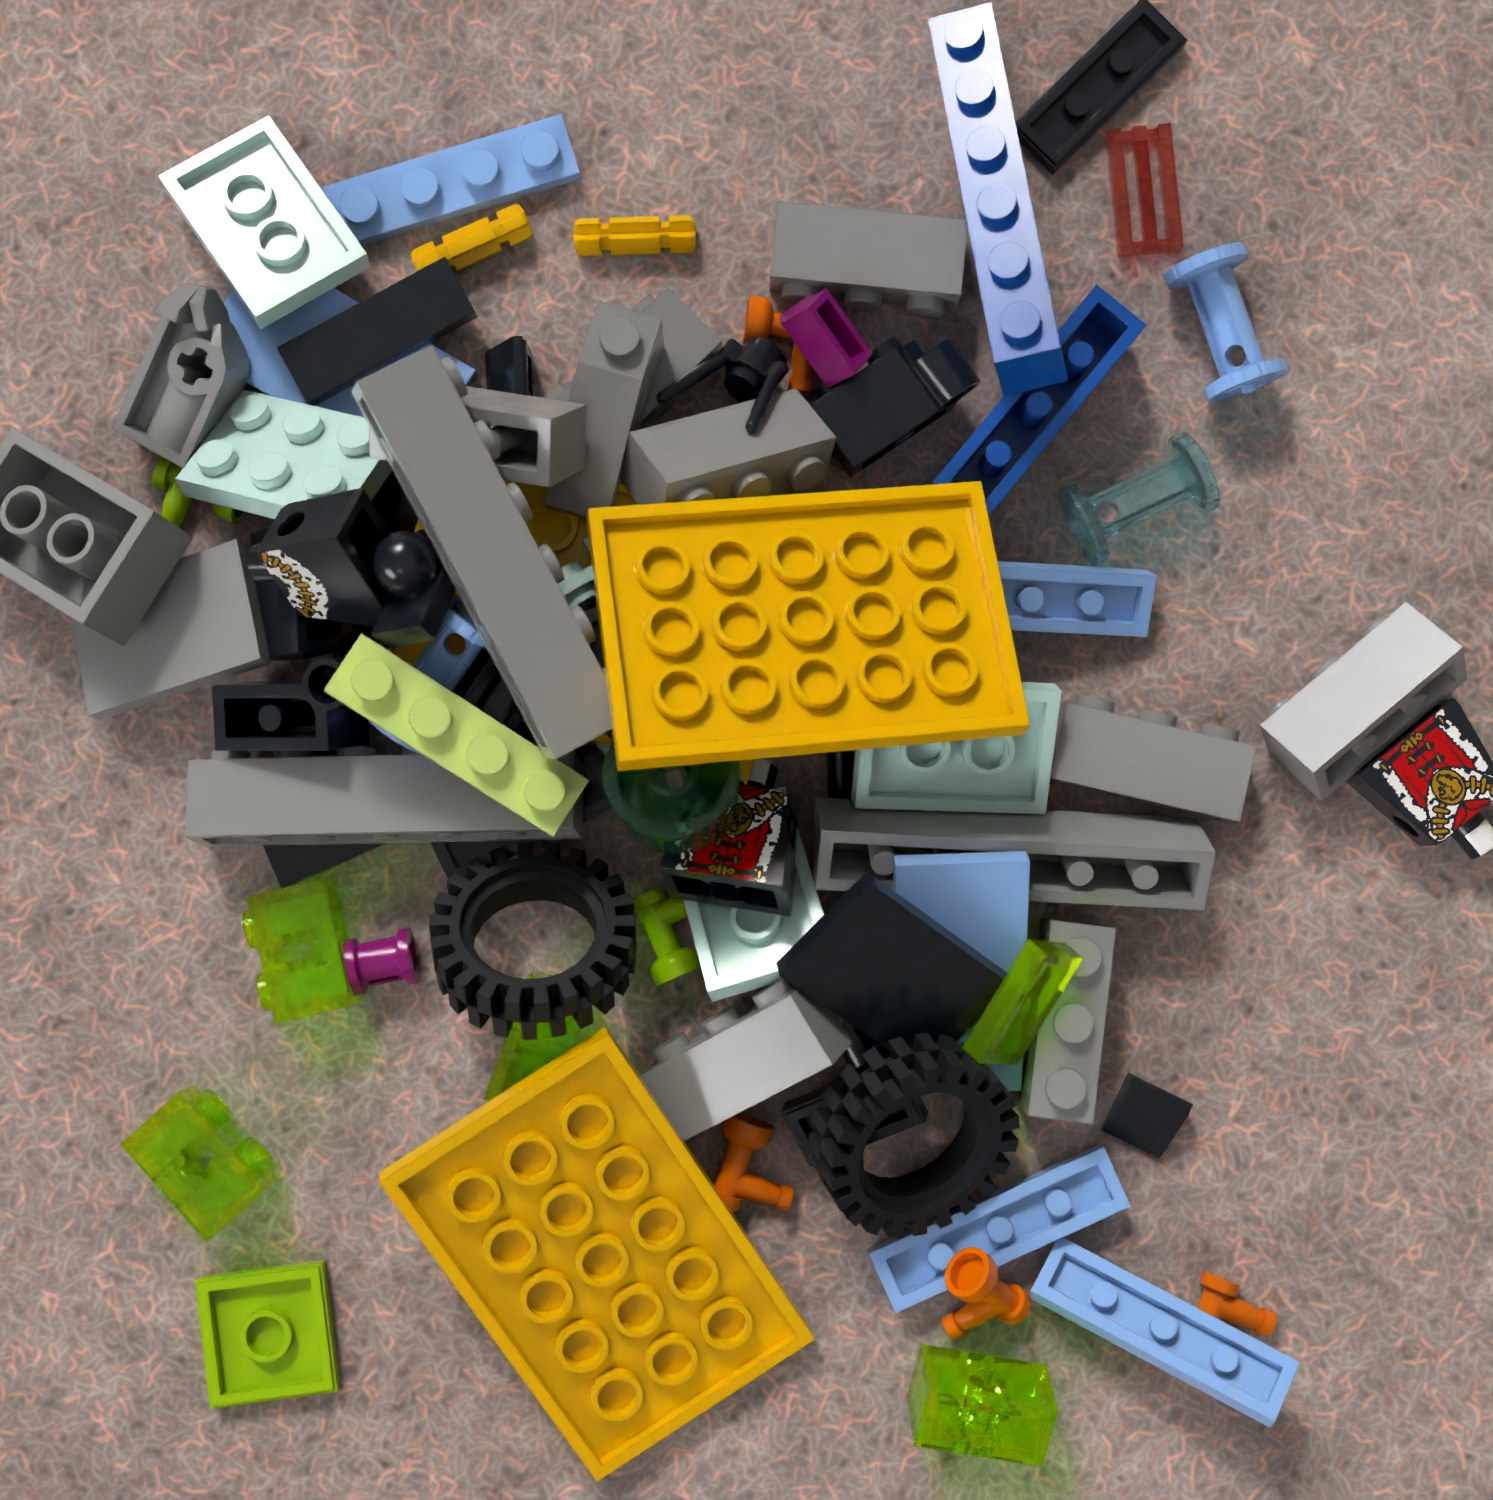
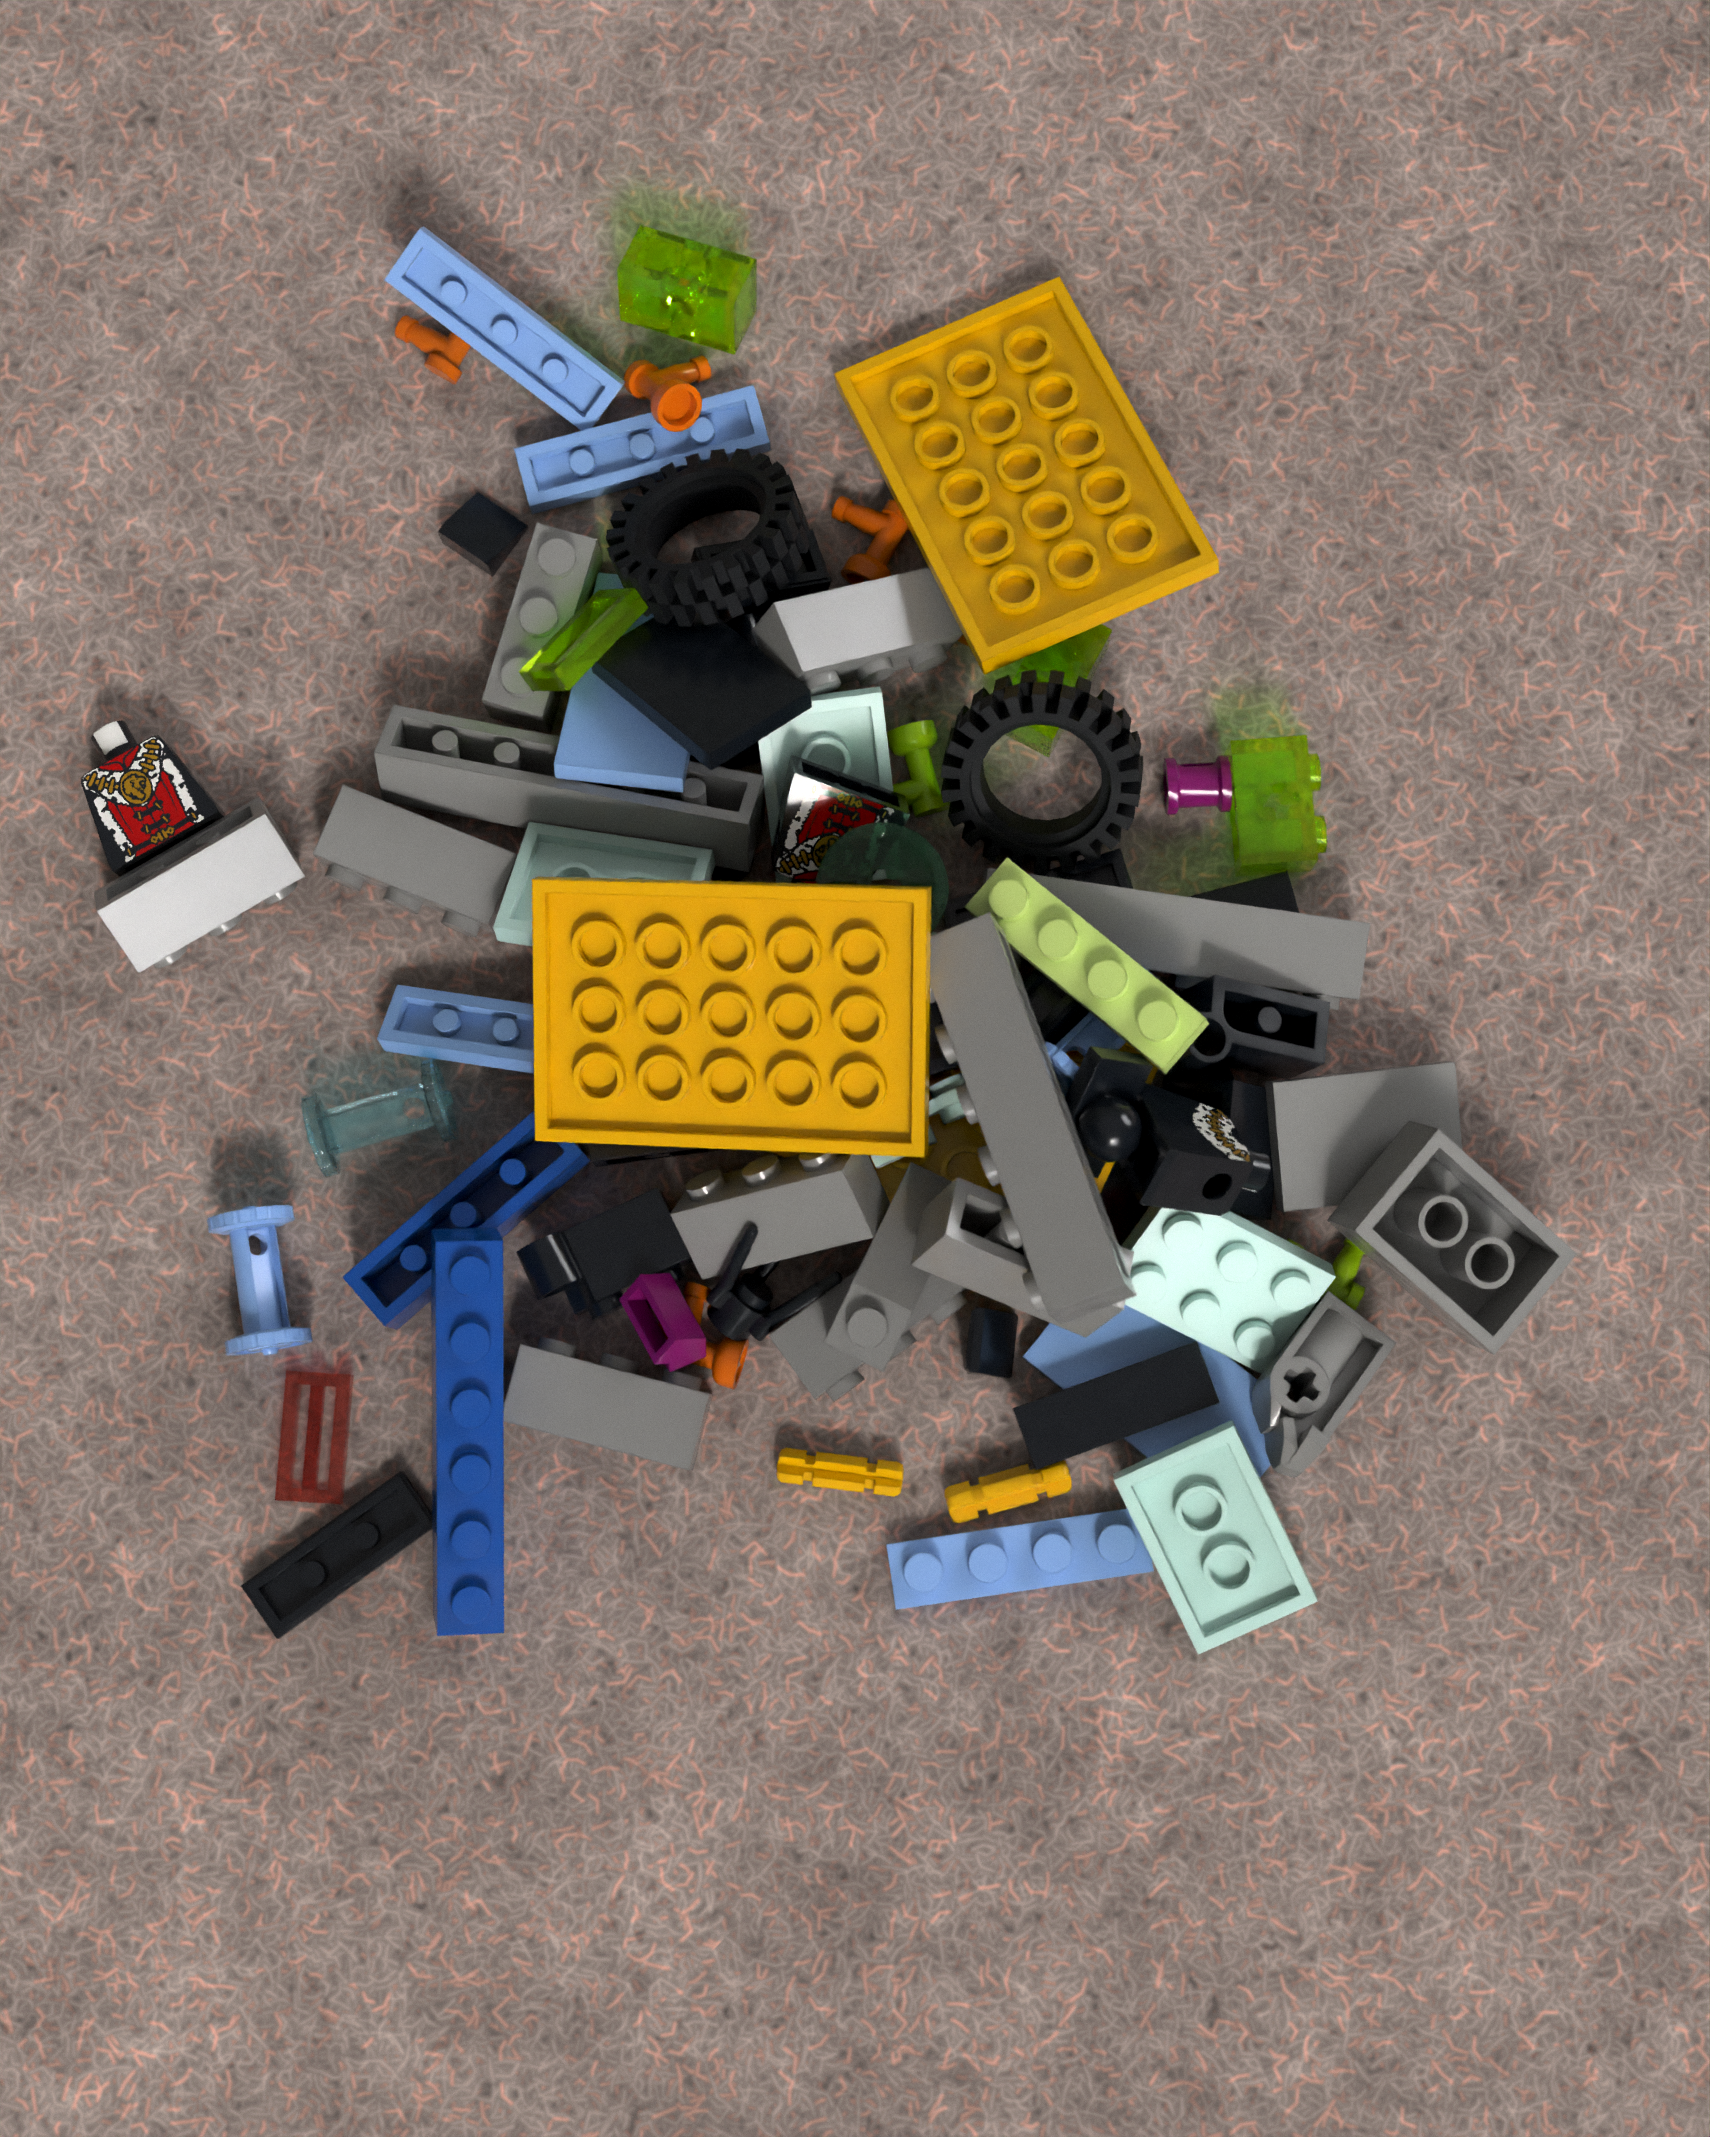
camera: 165 degrees left, 5 degrees down
(172, 1143) = (1395, 589): clear neon green brick -> none
(267, 1334) = (1355, 457): lime tile -> none

